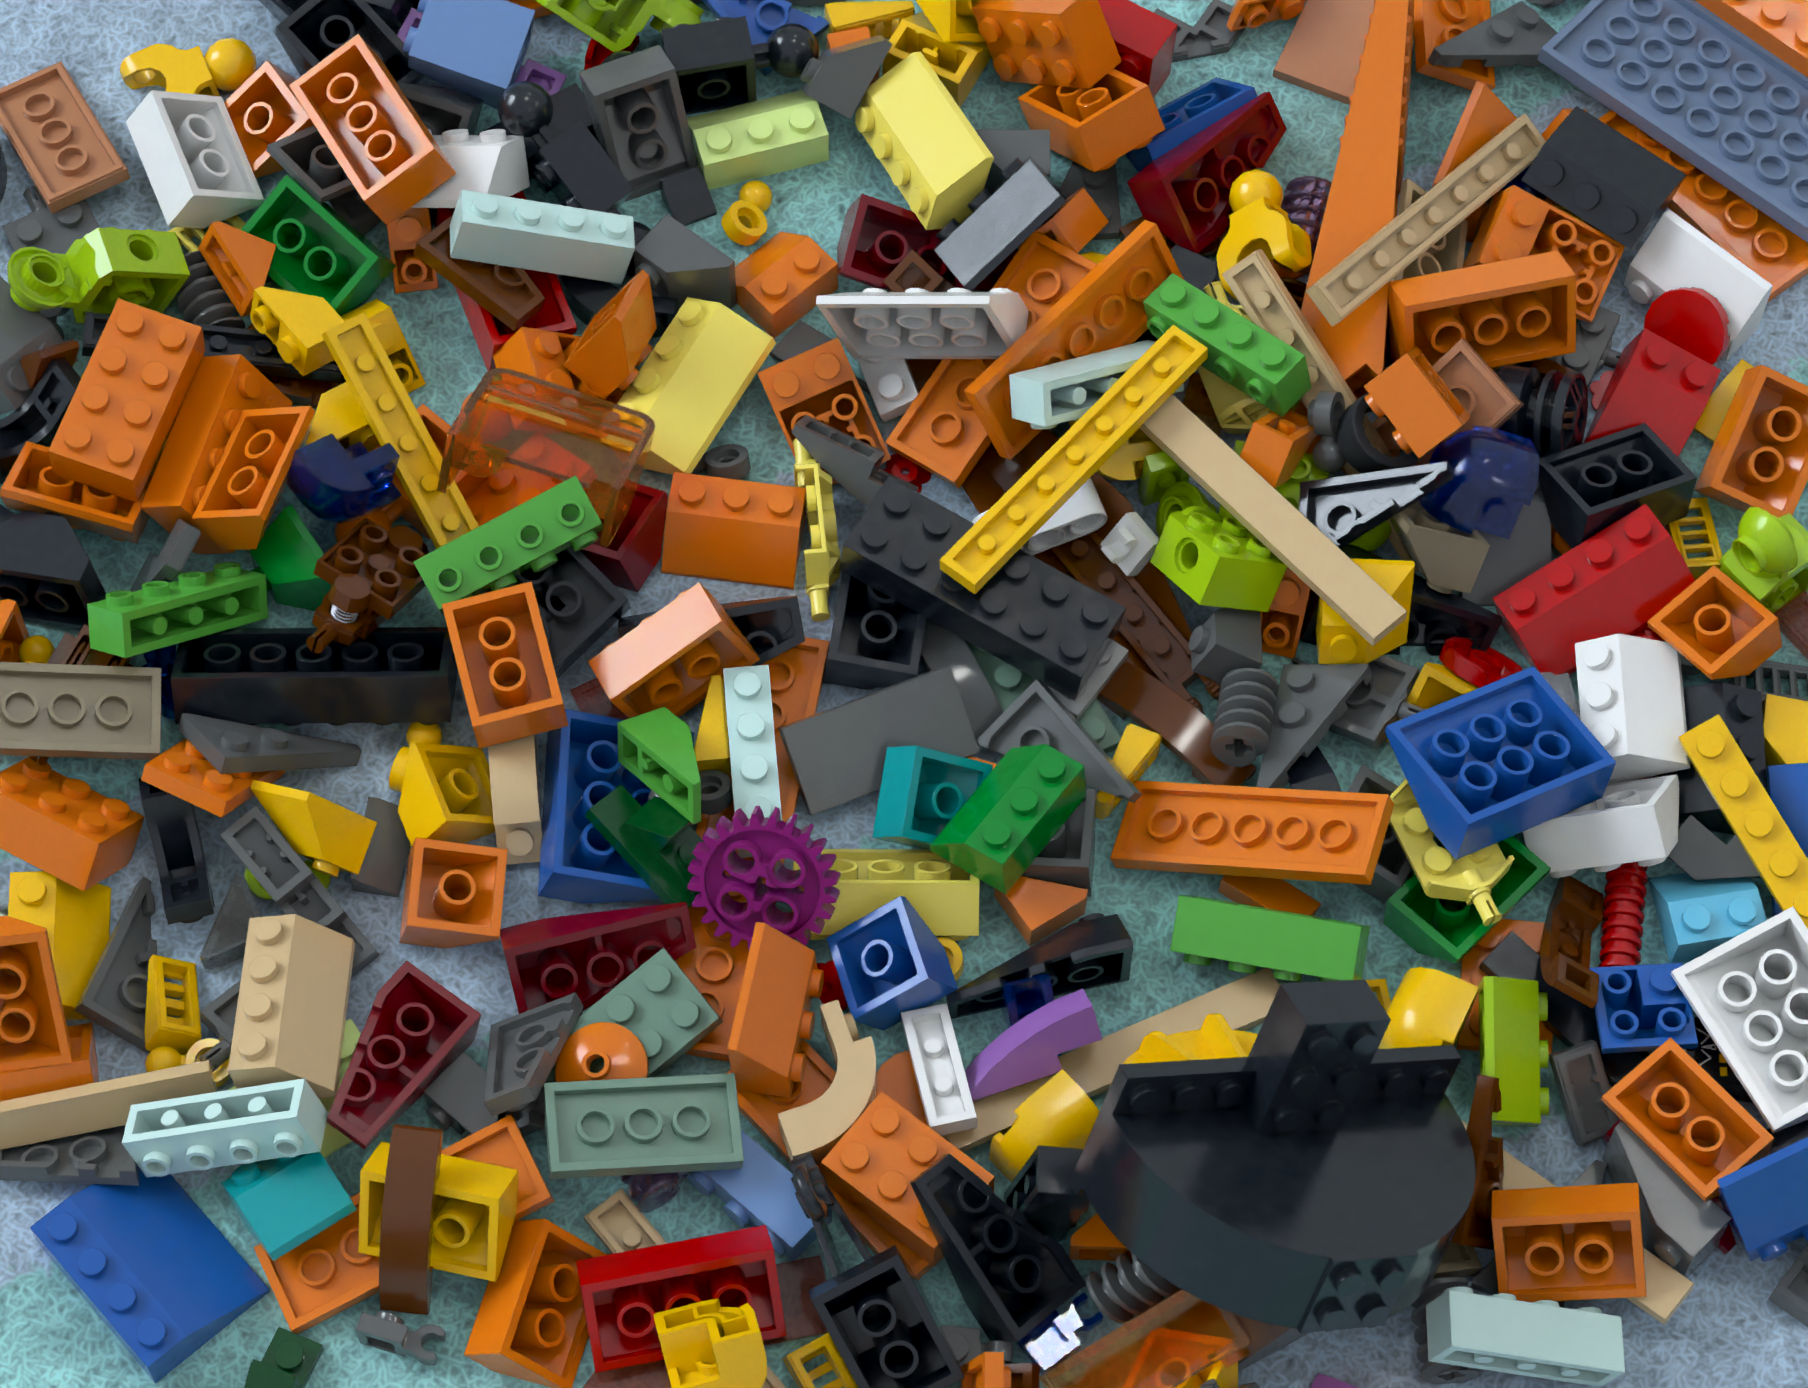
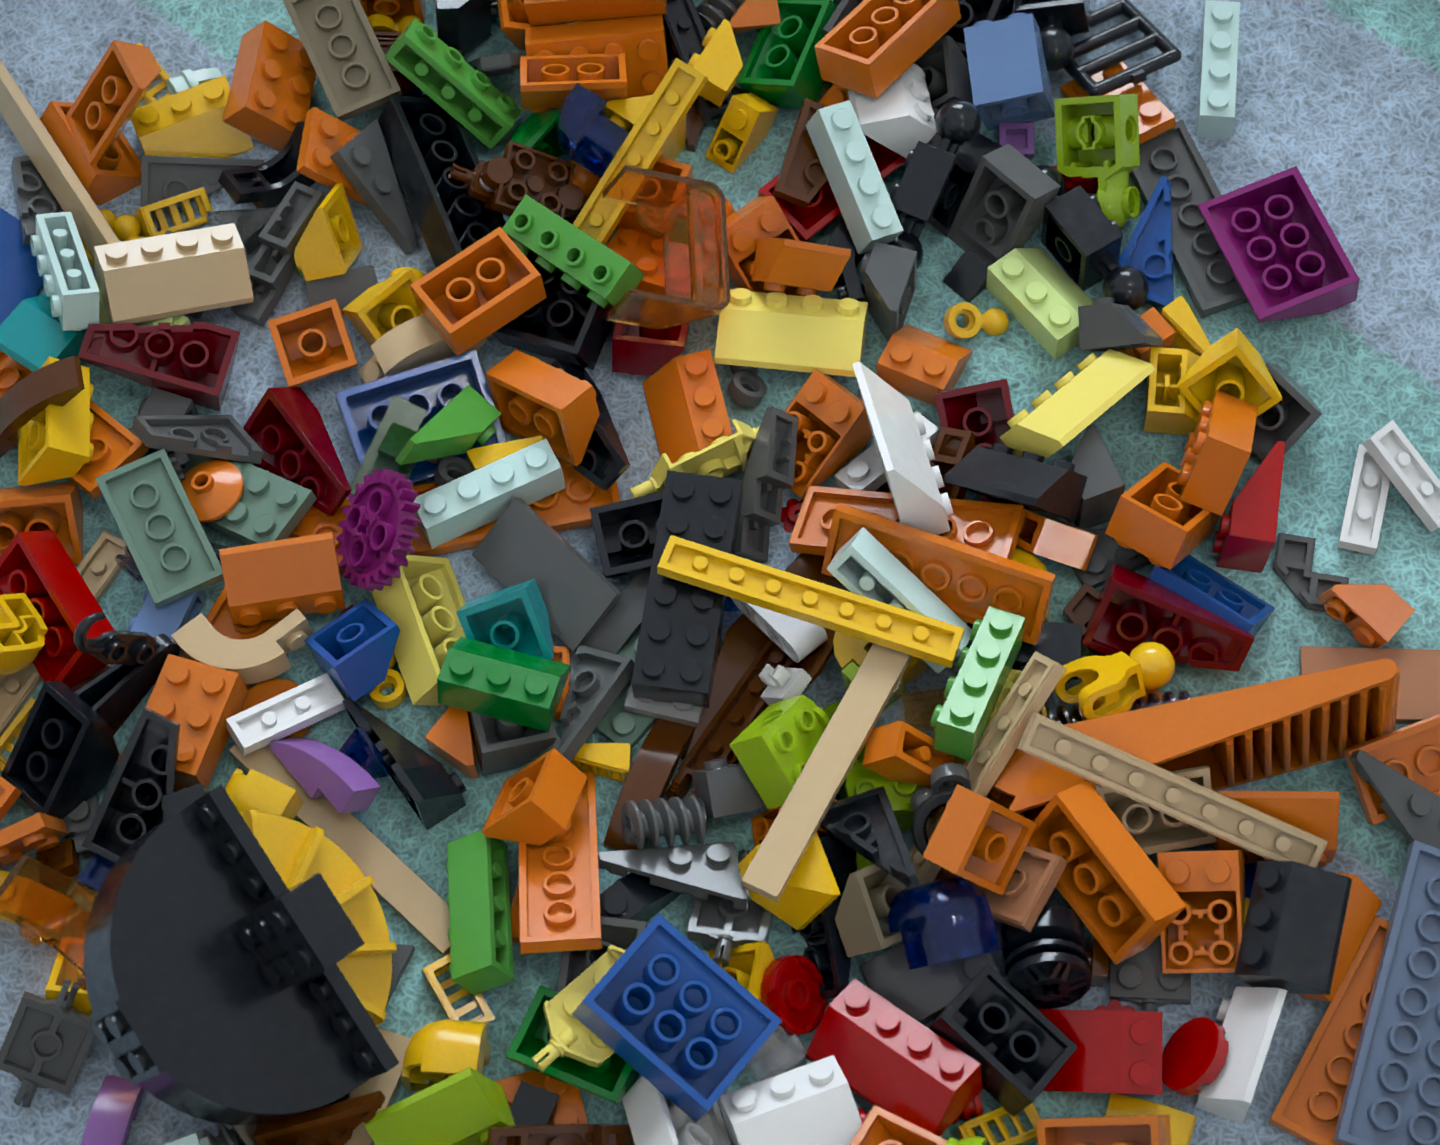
camera: 75 degrees right, 0 degrees up
(1171, 832) = (537, 801): none -> orange slope

